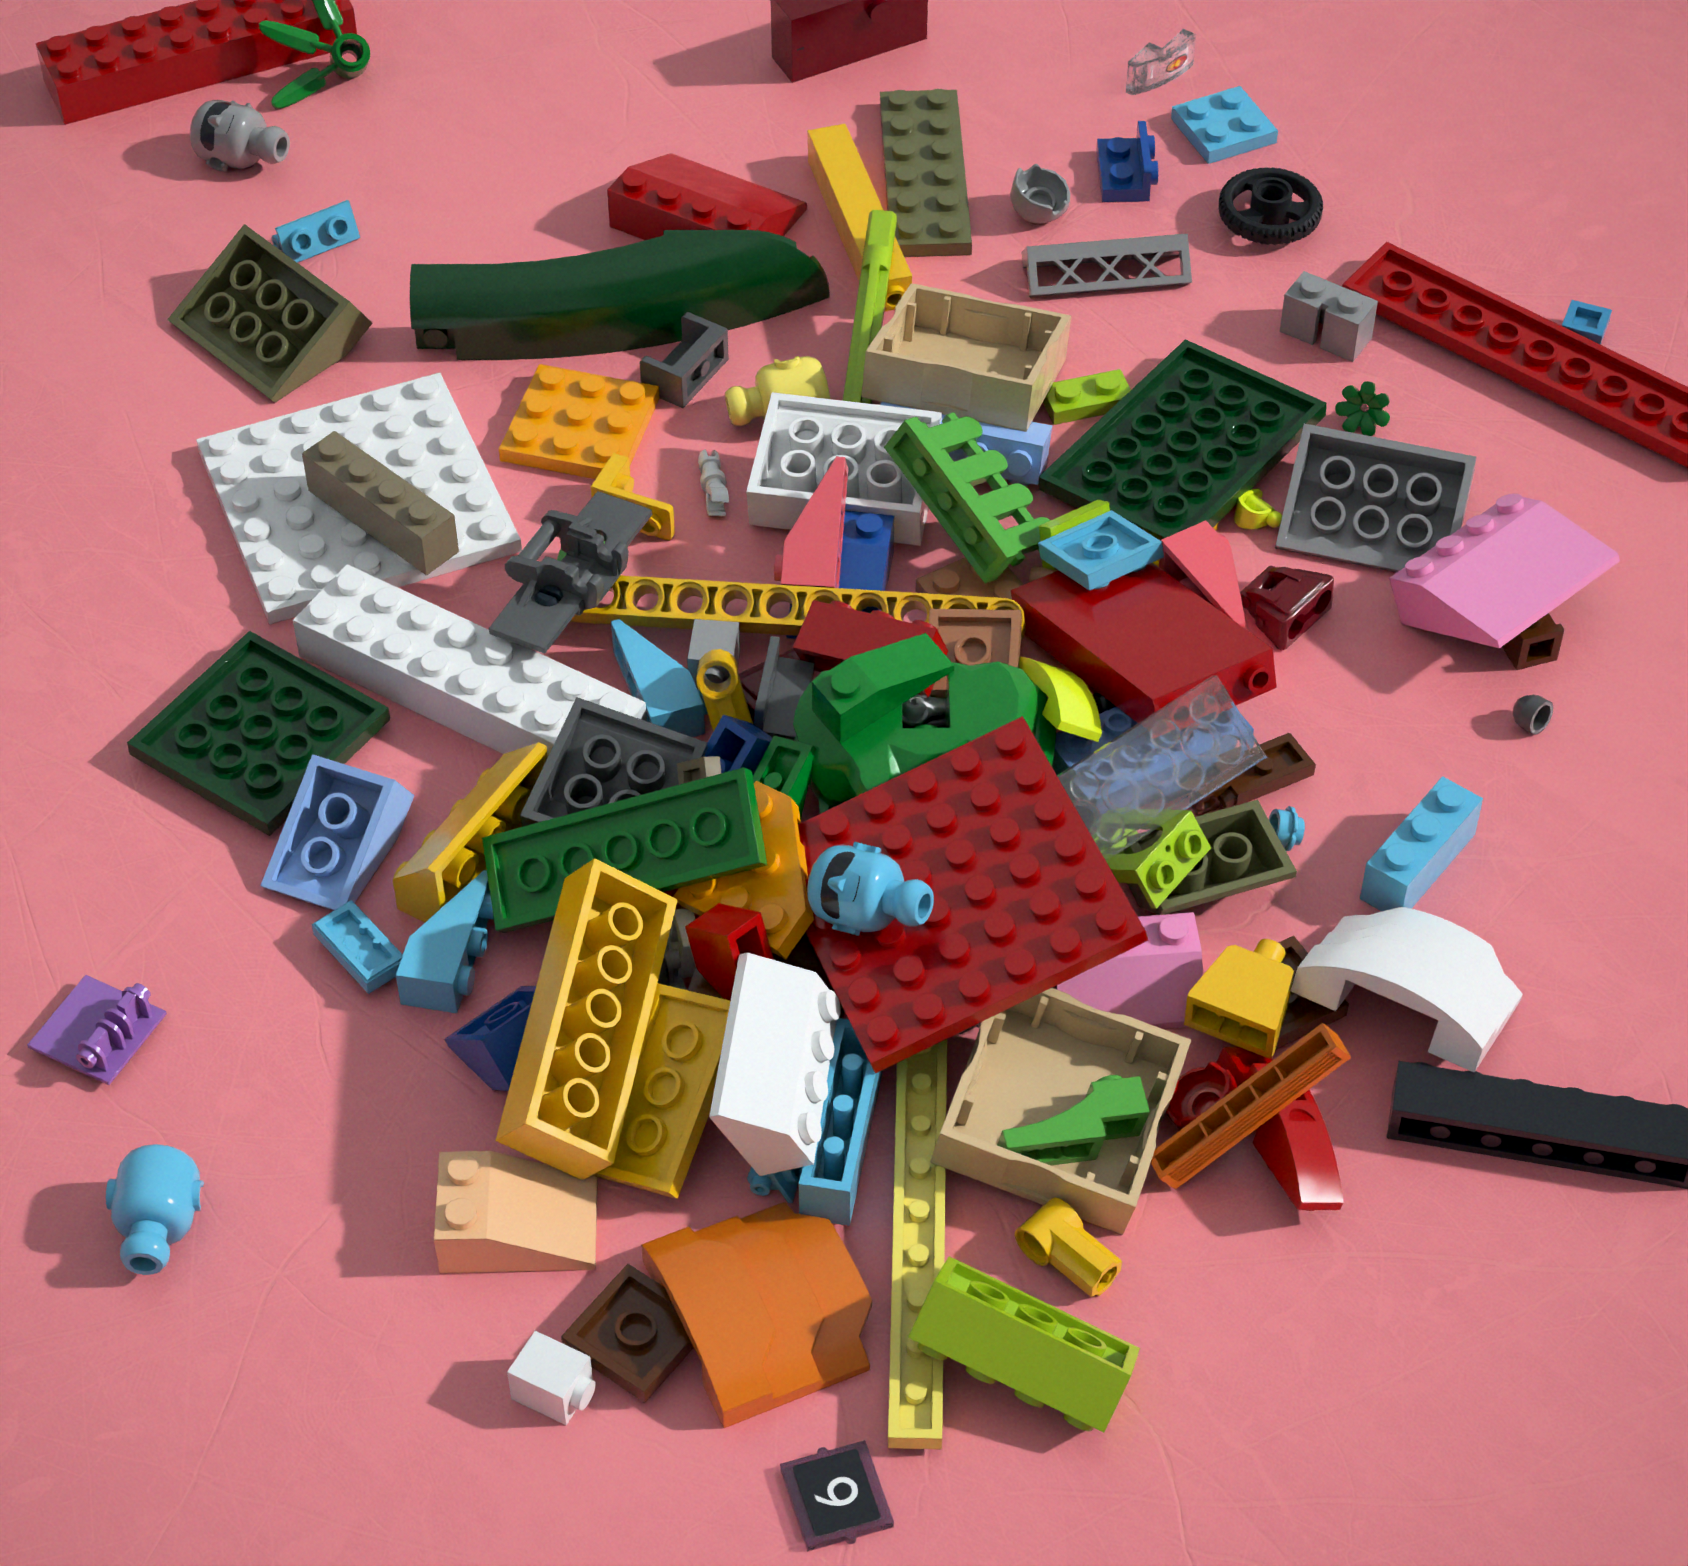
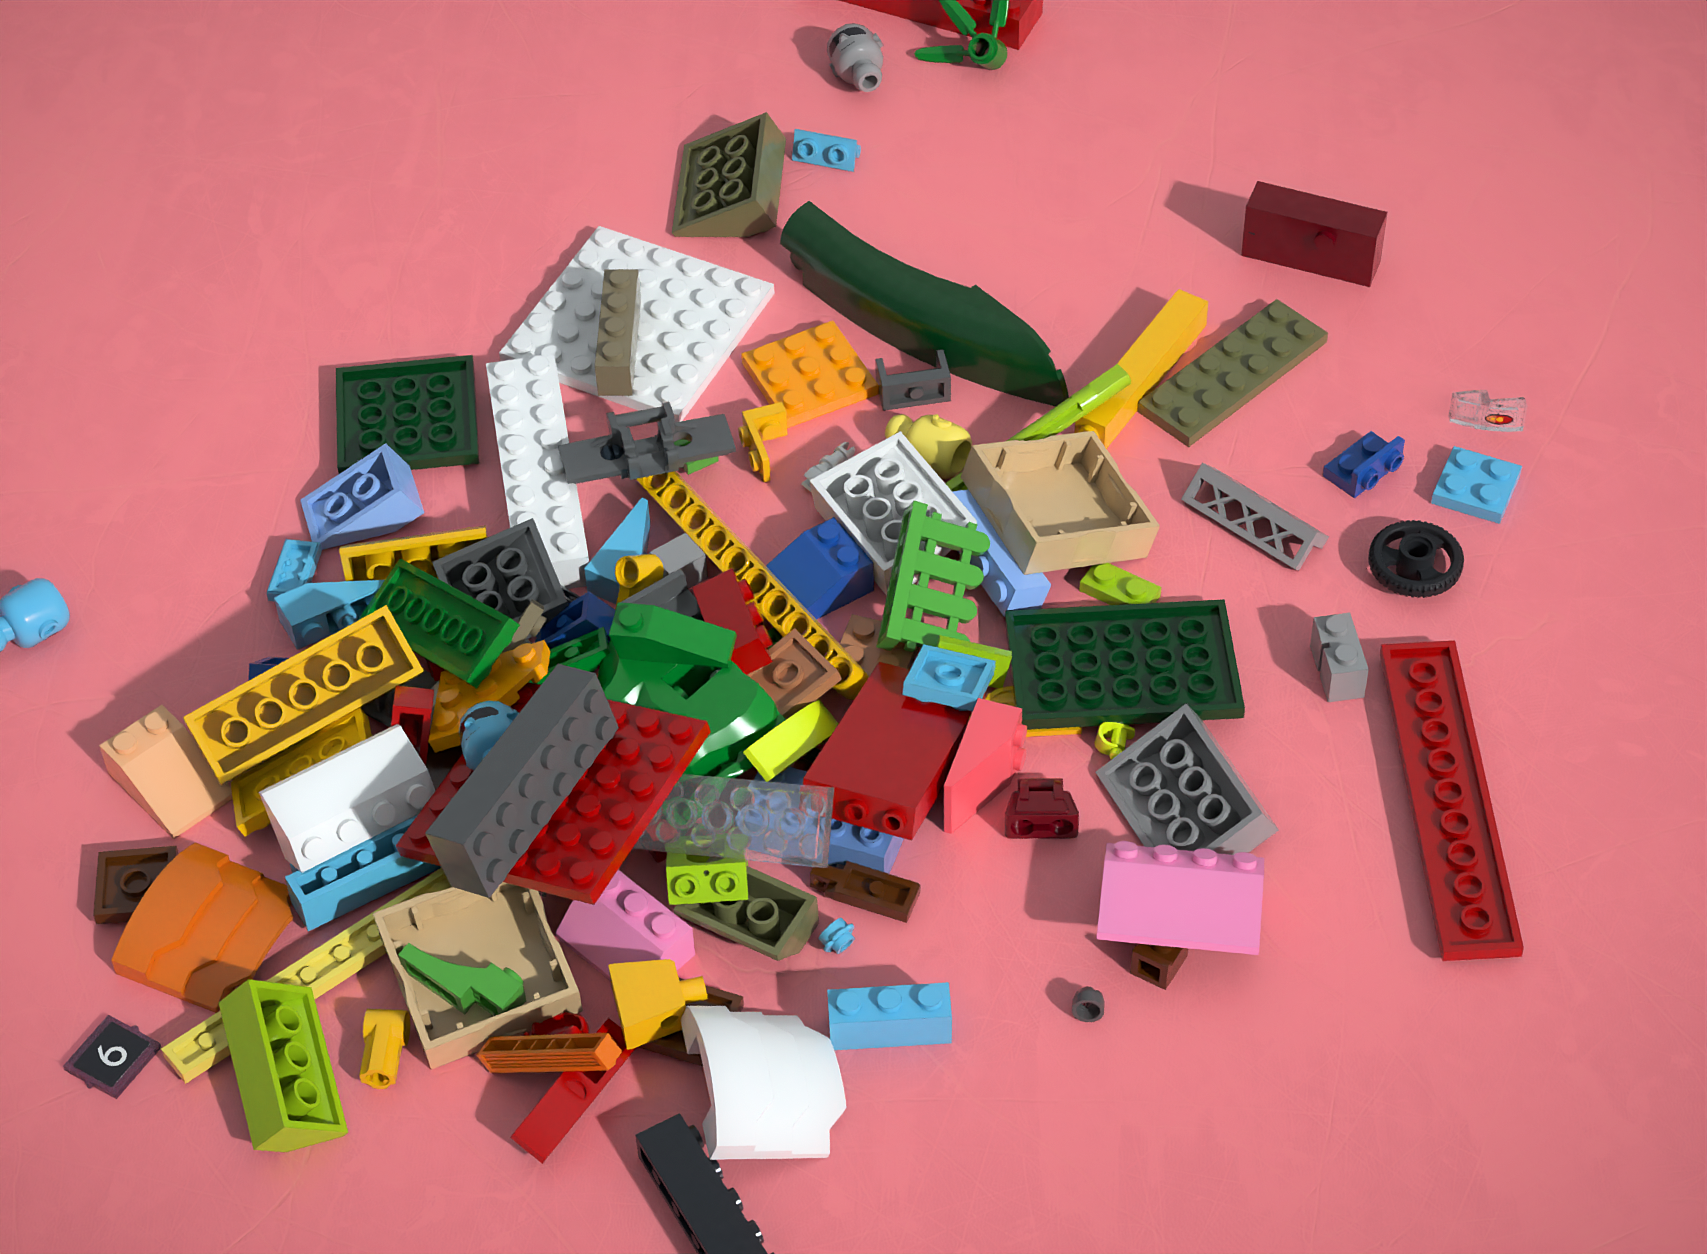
camera: 50 degrees right, 0 degrees up
(98, 1028) = (131, 509): medium lavender hinge -> none
(551, 1378) = (68, 868): white brick -> none
(692, 196) = (1063, 293): red slope -> none
(816, 539) = (798, 538): coral slope -> none
(969, 884) = (522, 780): none -> dark grey brick
(1039, 194) = (1272, 437): light grey hair -> none
(1358, 412) = (1274, 733): green plant -> none
(1587, 320) = (1514, 800): dark azure plate -> none

